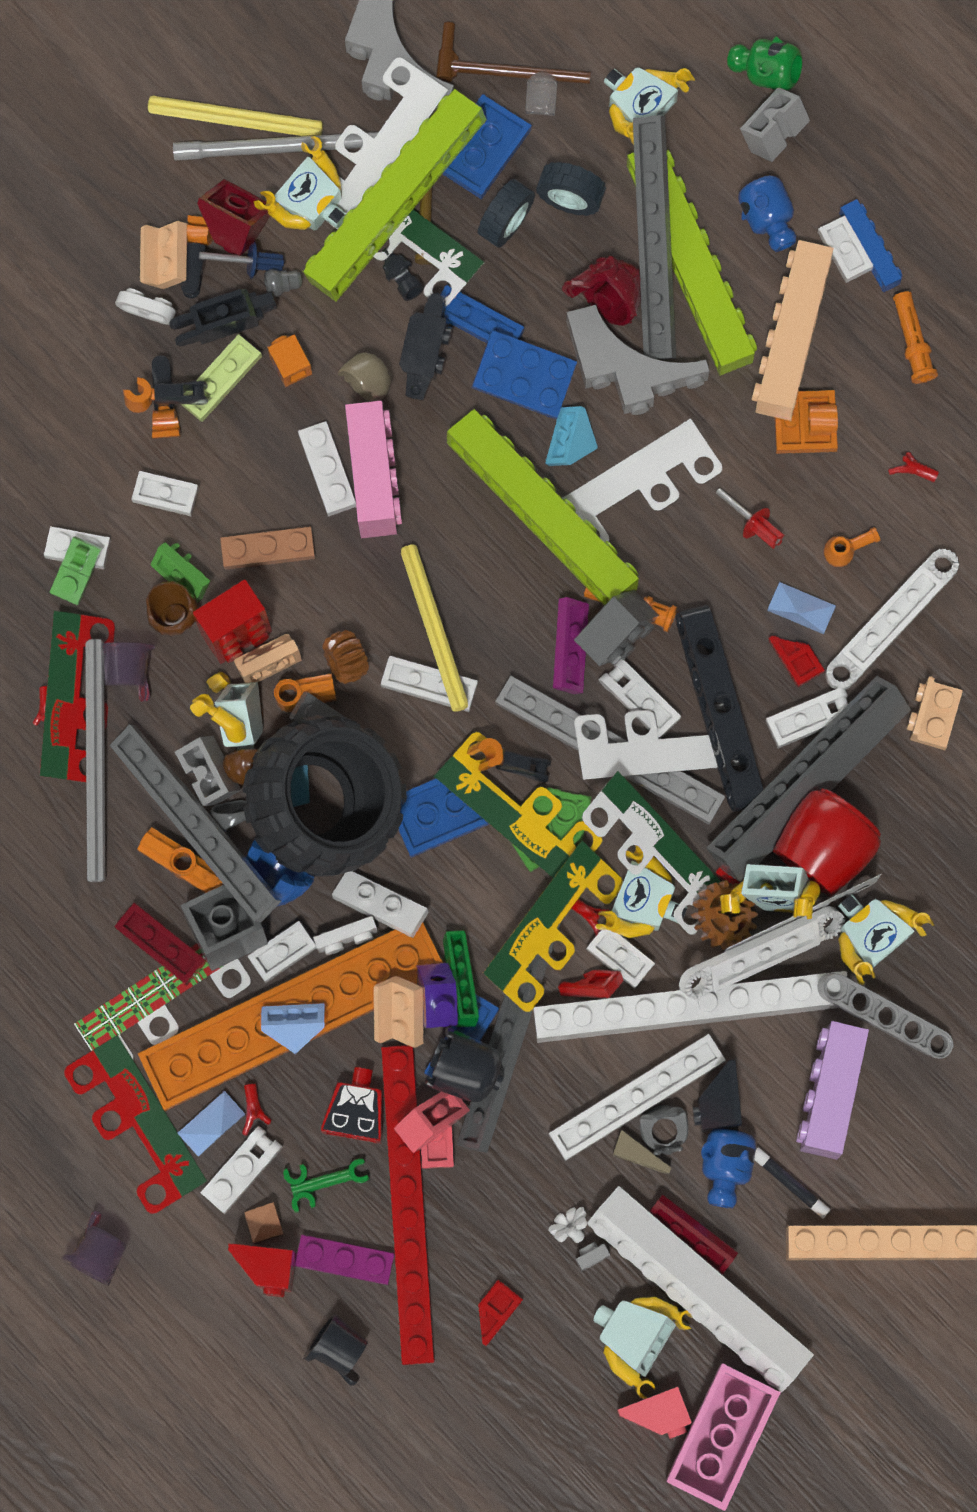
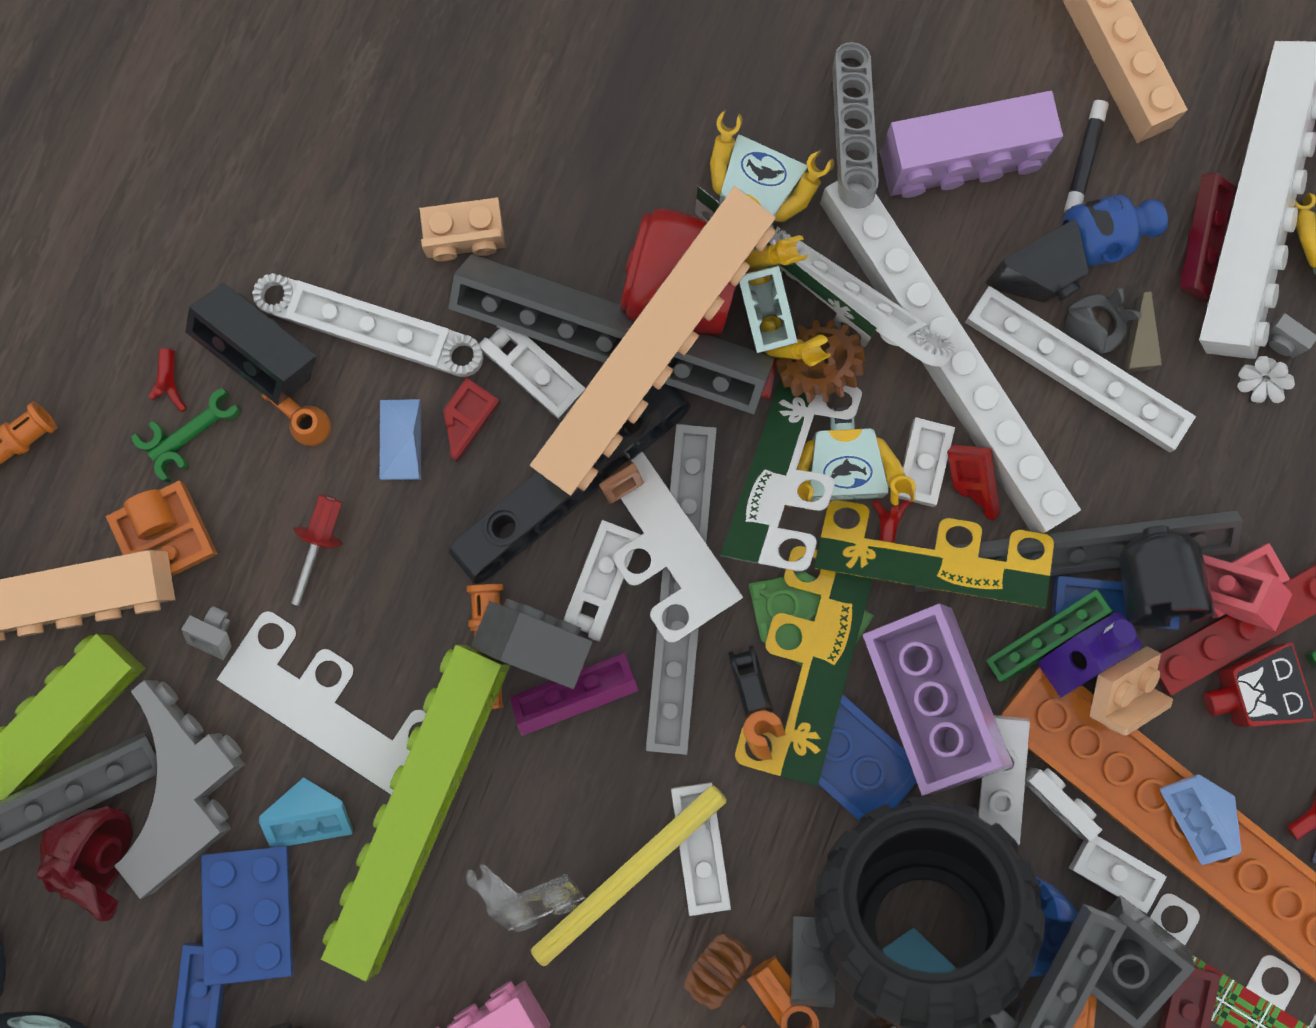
camera: 115 degrees left, 5 degrees up
(445, 550) = (523, 909): none -> clear plate
(455, 877) = (937, 700): none -> lavender brick
(701, 740) = (621, 482): none -> nougat slope
(722, 426) = (210, 633): none -> light grey tile
(783, 790) = (653, 340): none -> light nougat brick
(867, 446) = (162, 448): none -> green bar
(912, 533) = (250, 343): none -> black brick

